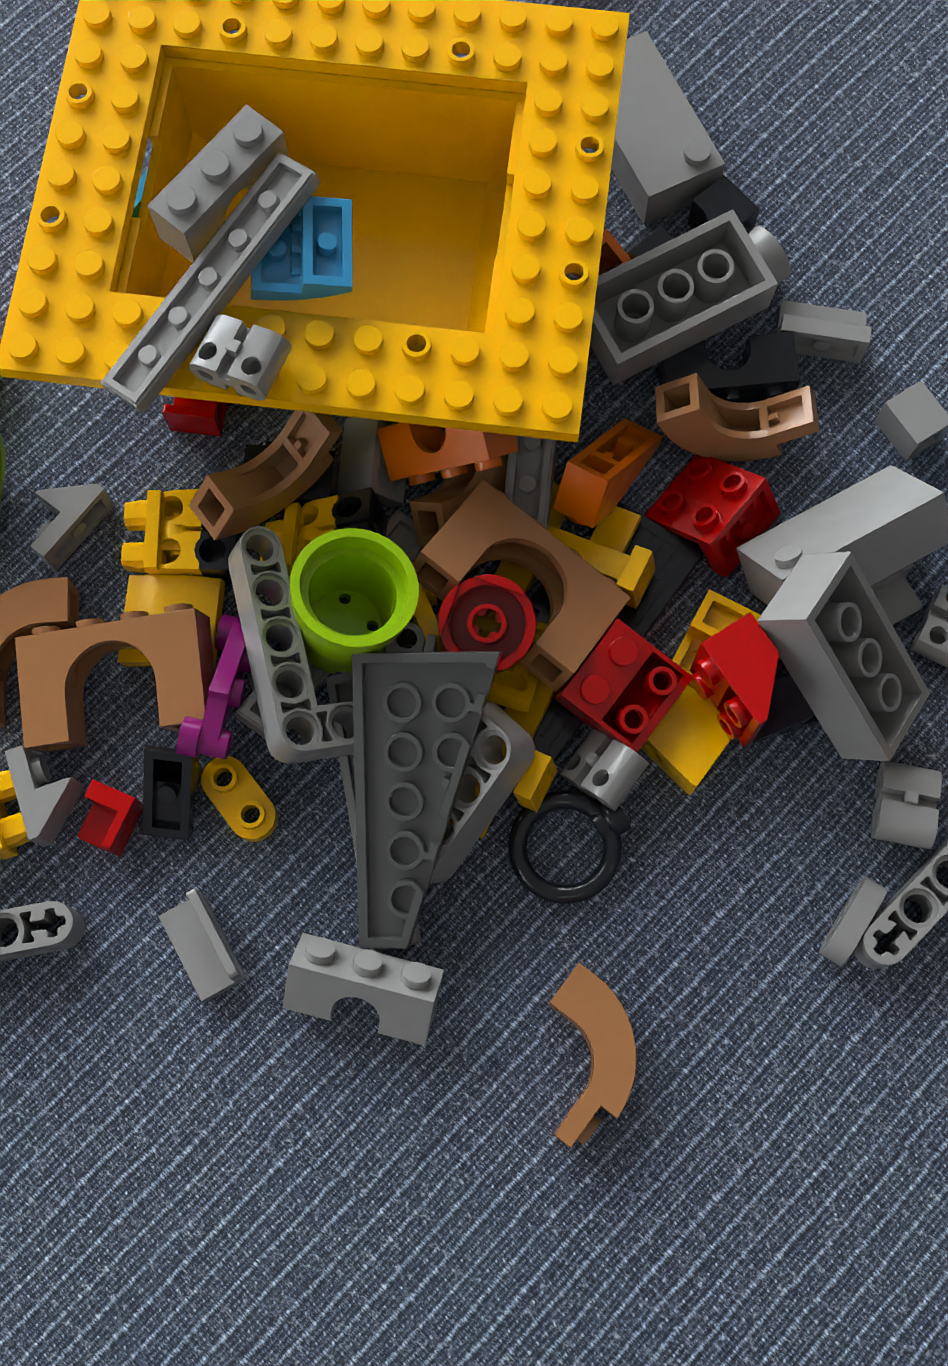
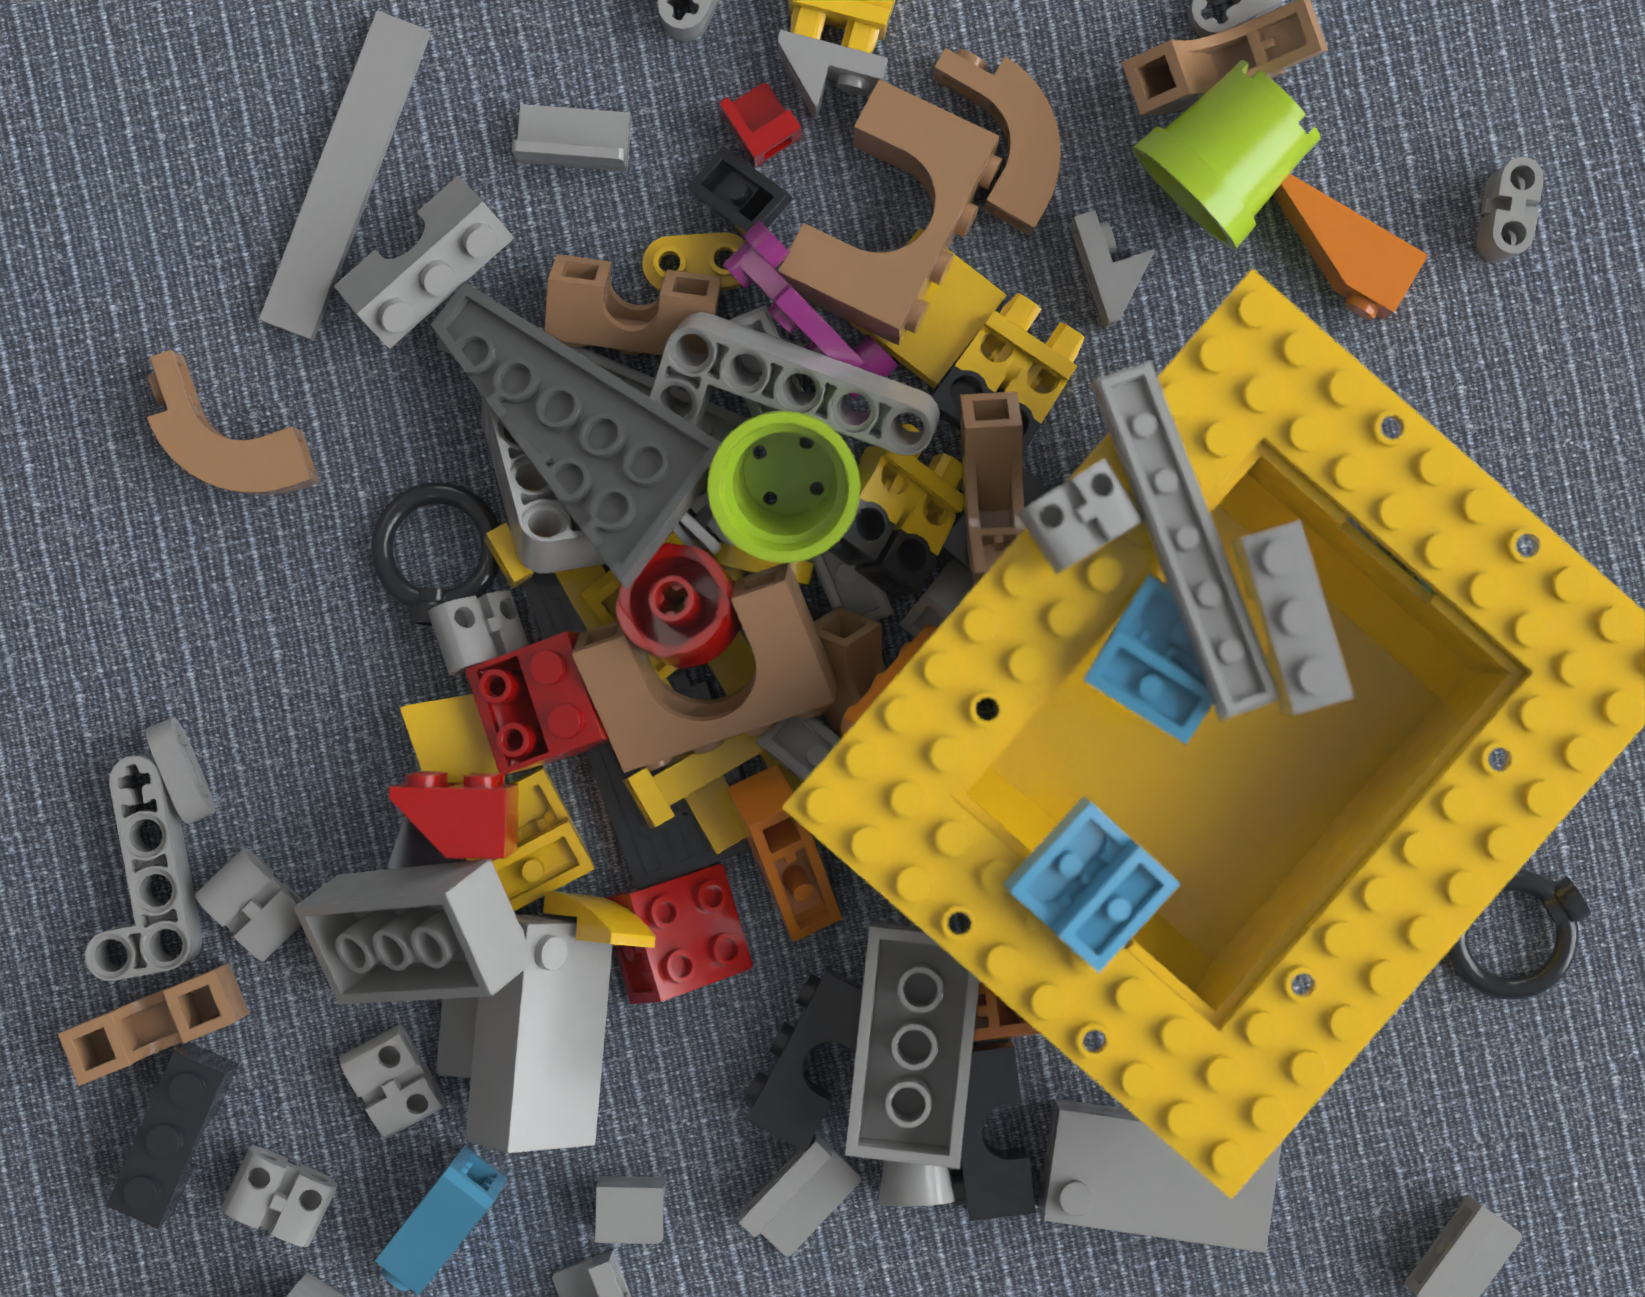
camera: 120 degrees right, 15 degrees up
(324, 847) = (588, 311): none -> medium nougat arch
(336, 1099) = (345, 175): none -> light grey tile
(487, 204) = (1091, 884): none -> dark azure slope
(729, 429) = (762, 995): medium nougat arch -> none
(740, 545) = (600, 919): none -> yellow slope

